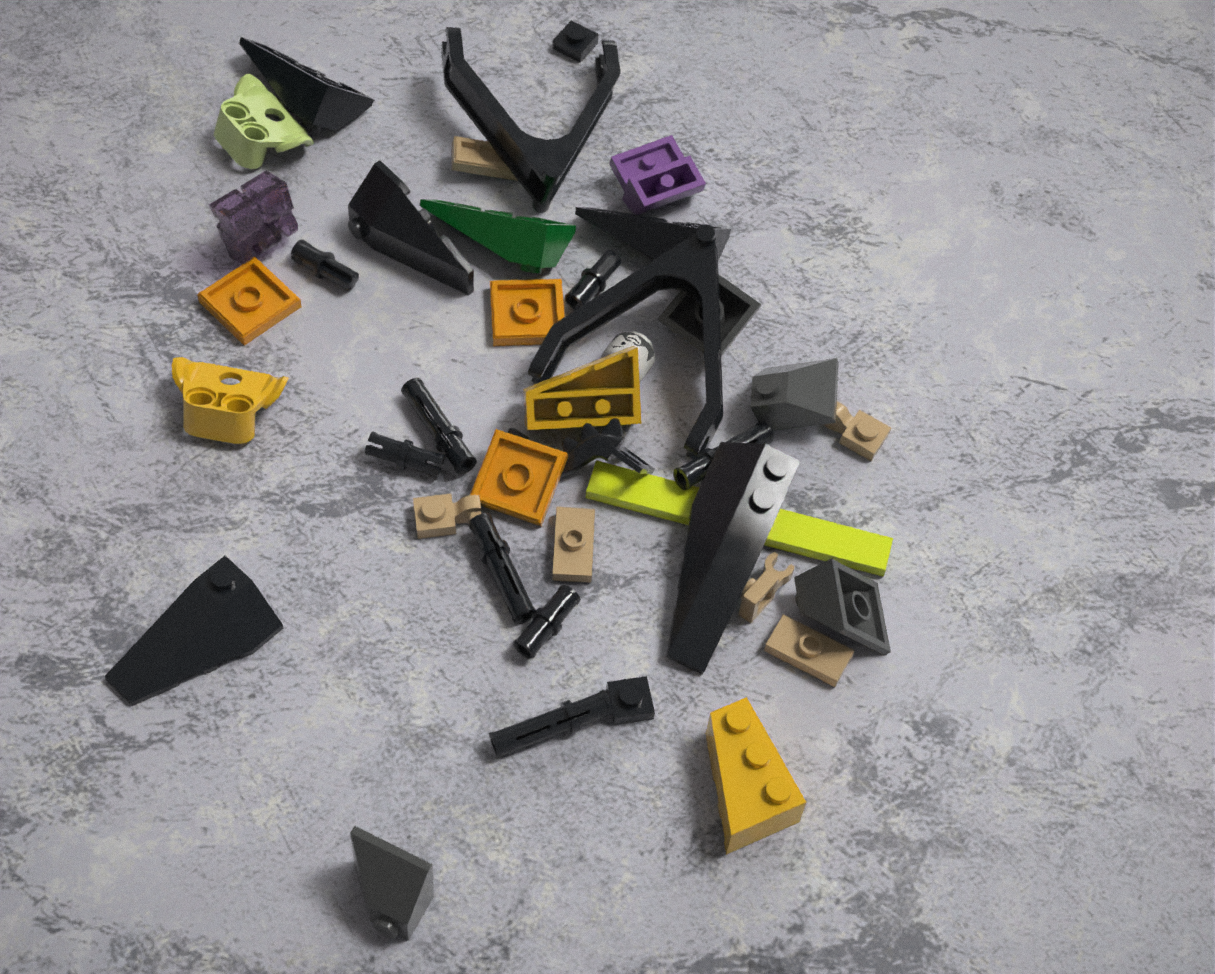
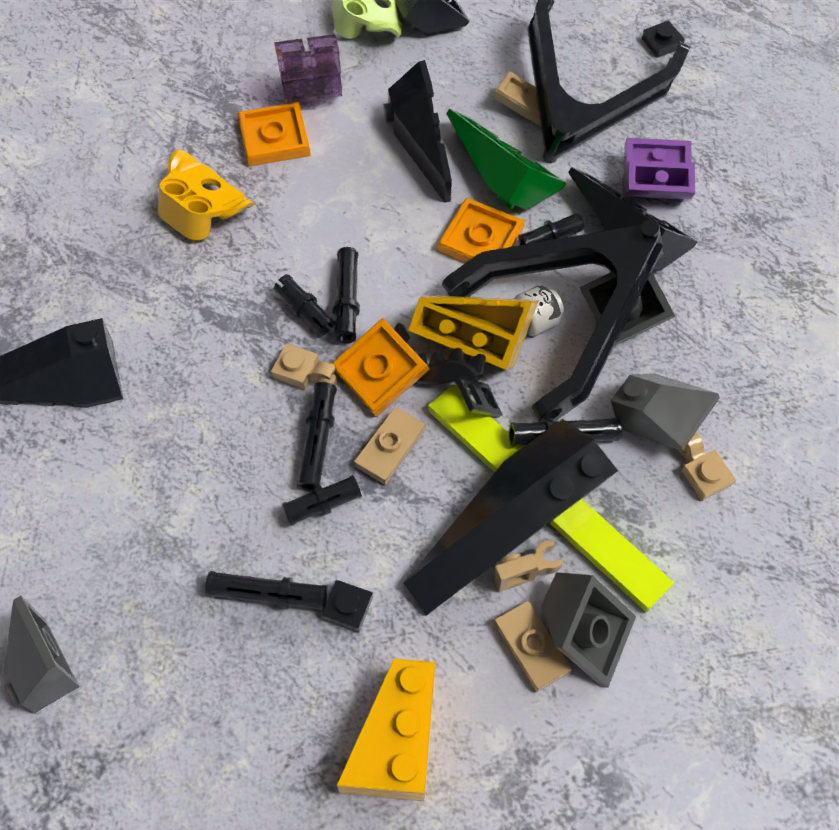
camera: 35 degrees right, 5 degrees up
(323, 264) = (345, 129): black axle -> none

